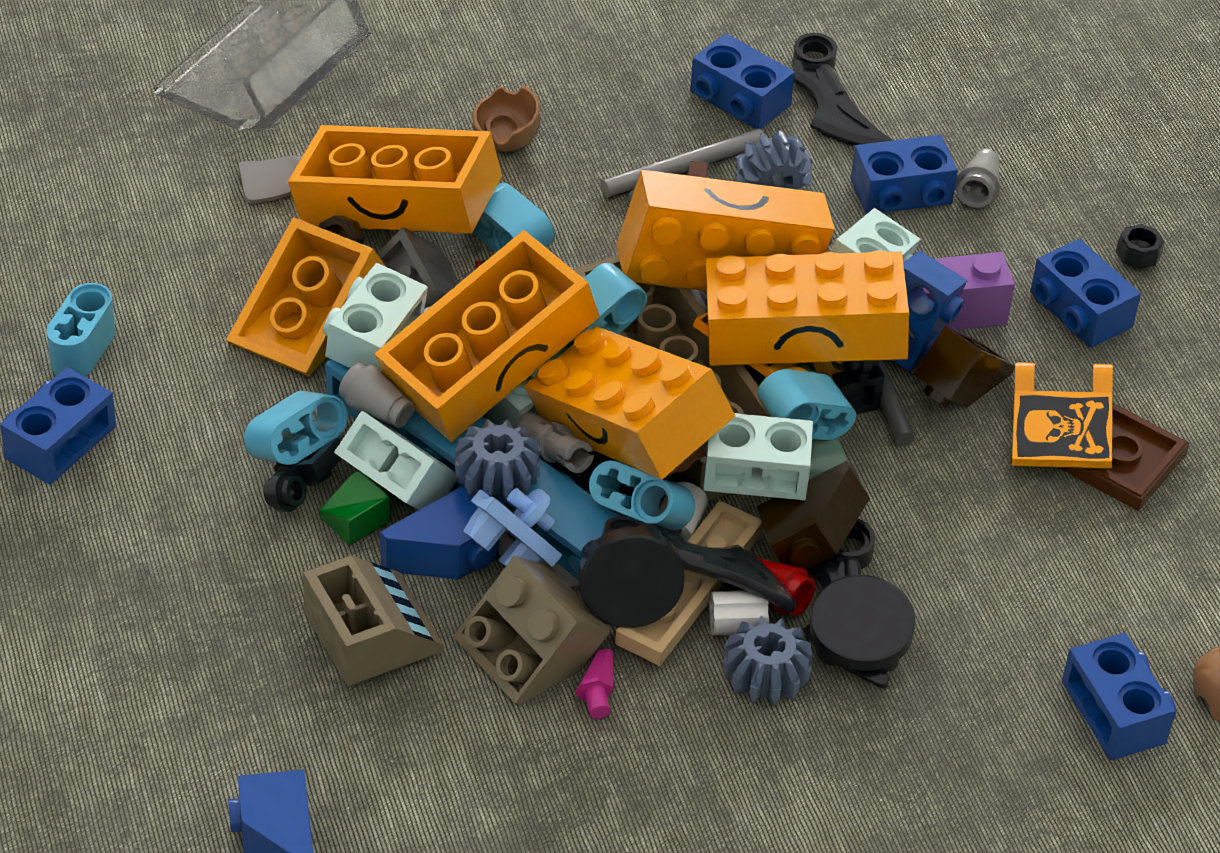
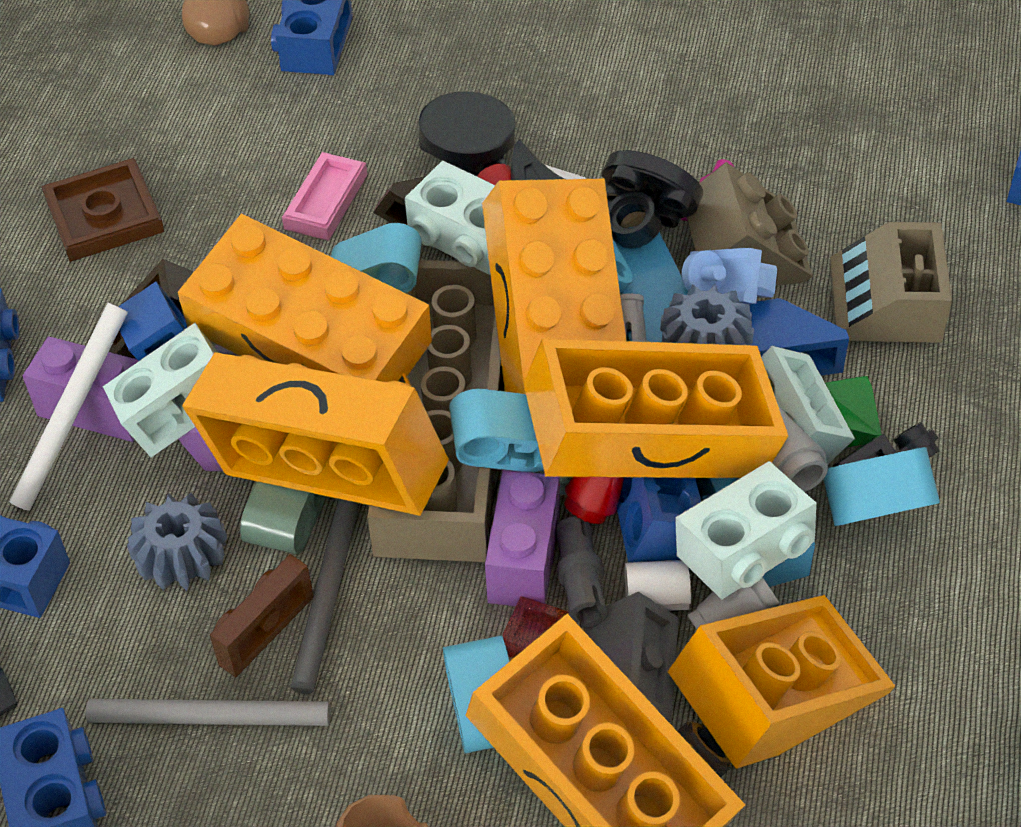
camera: 145 degrees left, 5 degrees up
(767, 660) = (565, 138): sand blue gear -> none
(775, 162) = (139, 607): sand blue gear -> none
(944, 243) = (68, 406): none -> white piece
(945, 541) = (325, 196): none -> bright pink tile
(1062, 425) = (128, 234): flag -> none

